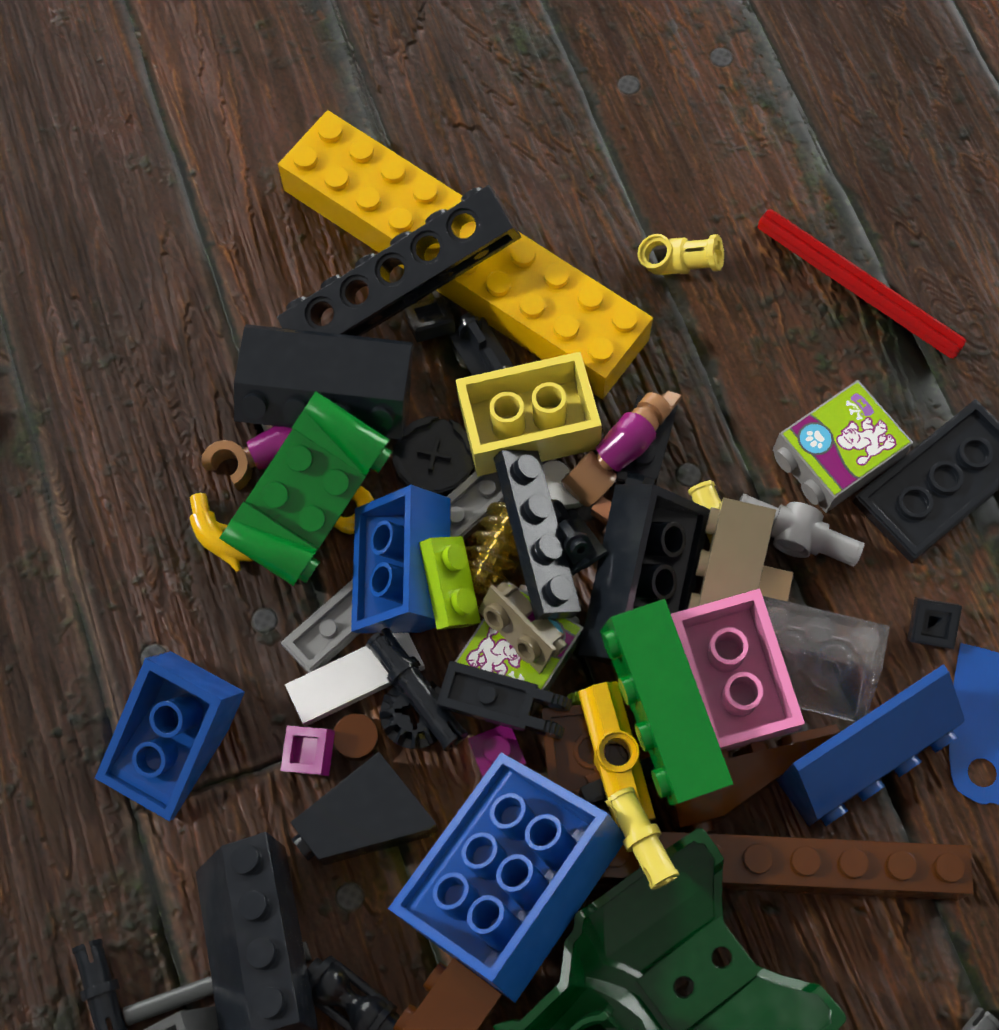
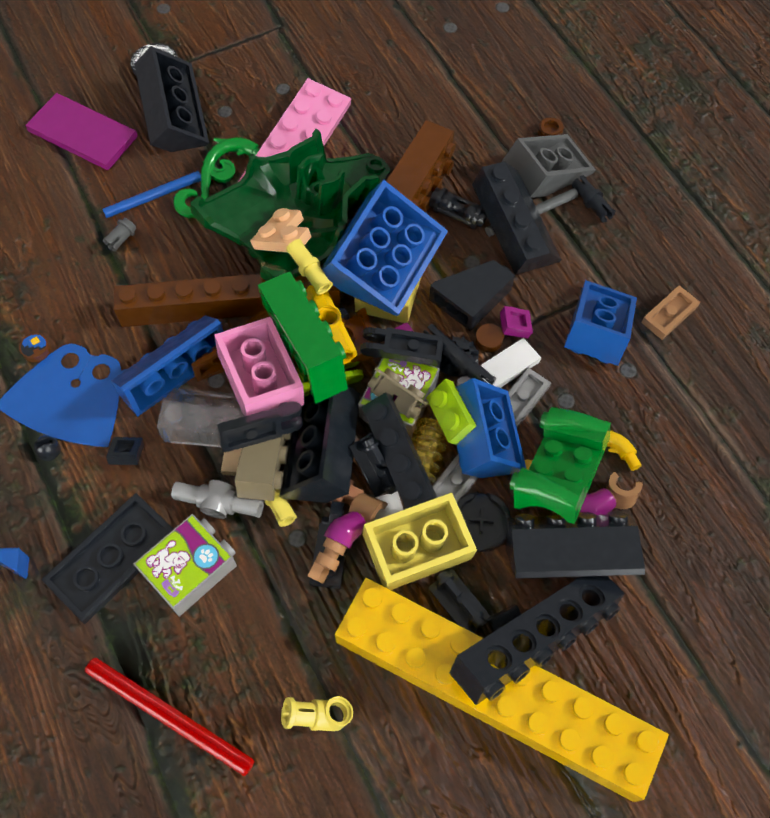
camera: 170 degrees right, 5 degrees down
(52, 735) = (670, 312): none -> medium nougat plate
(692, 956) = (281, 231): none -> light nougat plate
(772, 575) = (260, 426): none -> black hinge

